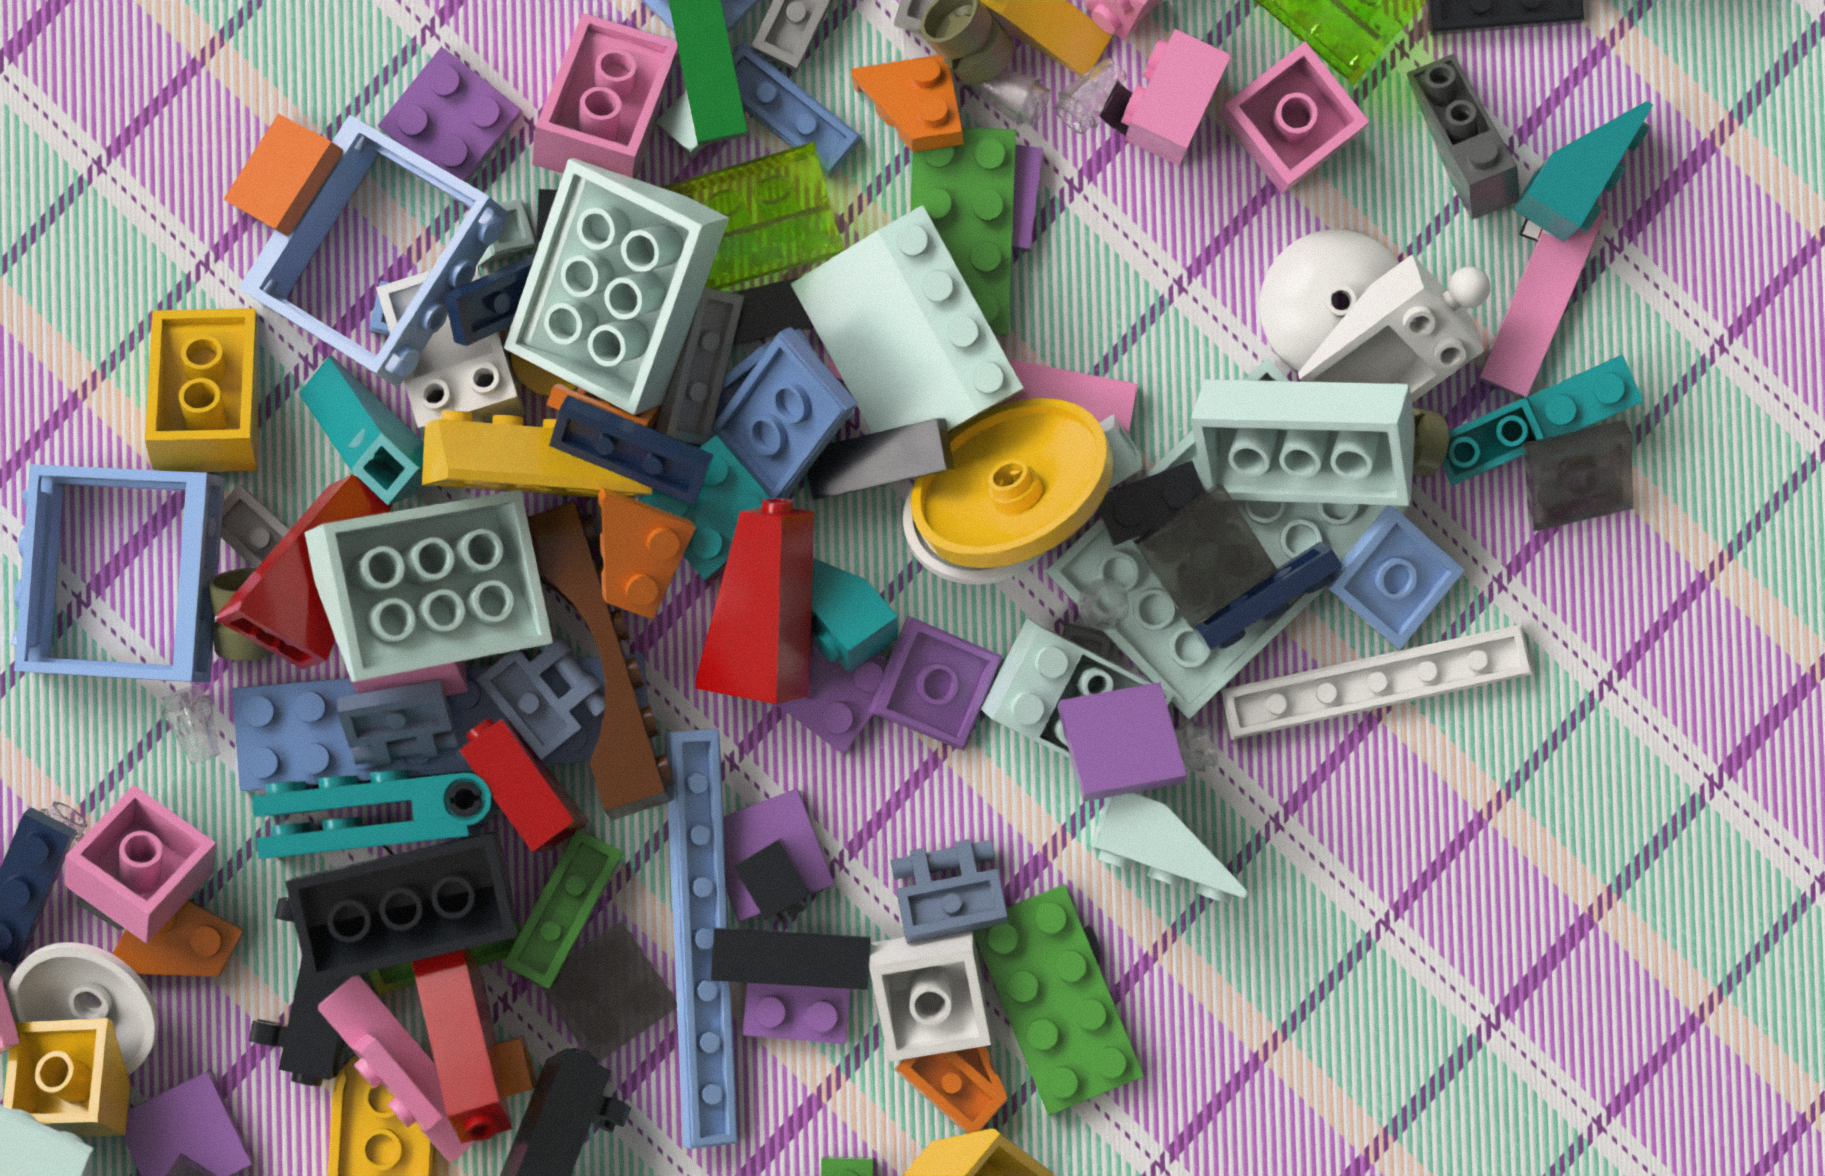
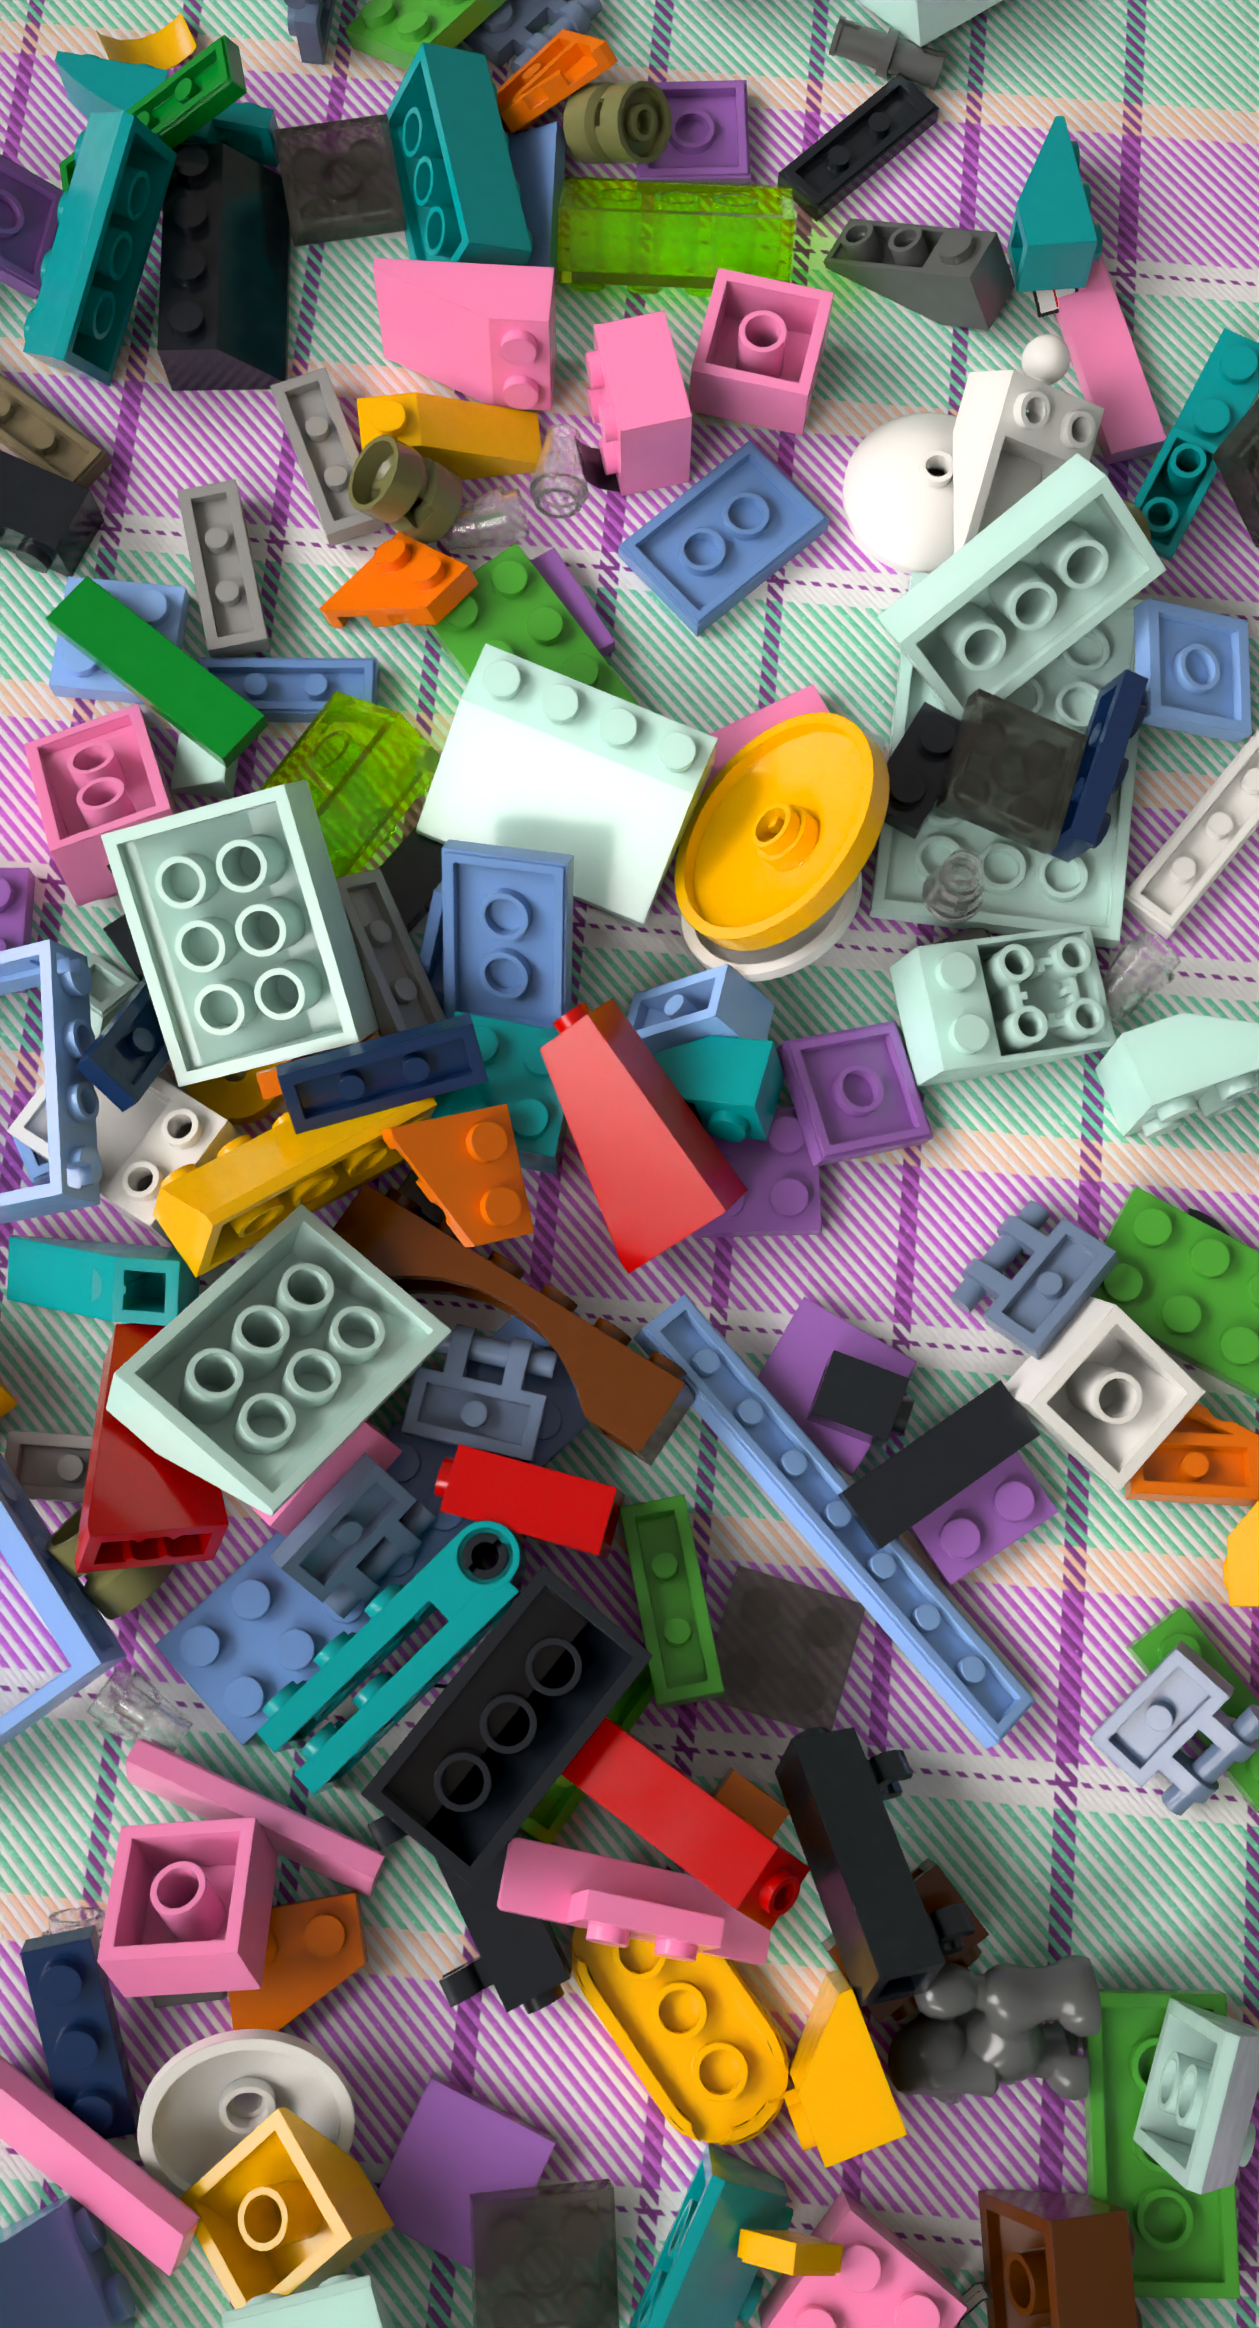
camera: 35 degrees left, 10 degrees down
(206, 817) = (287, 1830): none -> bright pink tile
(873, 553) = (700, 1006): none -> light blue slope
(881, 459) = (634, 916): tile -> none
(1121, 741) = (1089, 989): medium lavender tile -> none
(1166, 228) = (723, 538): none -> medium blue tile

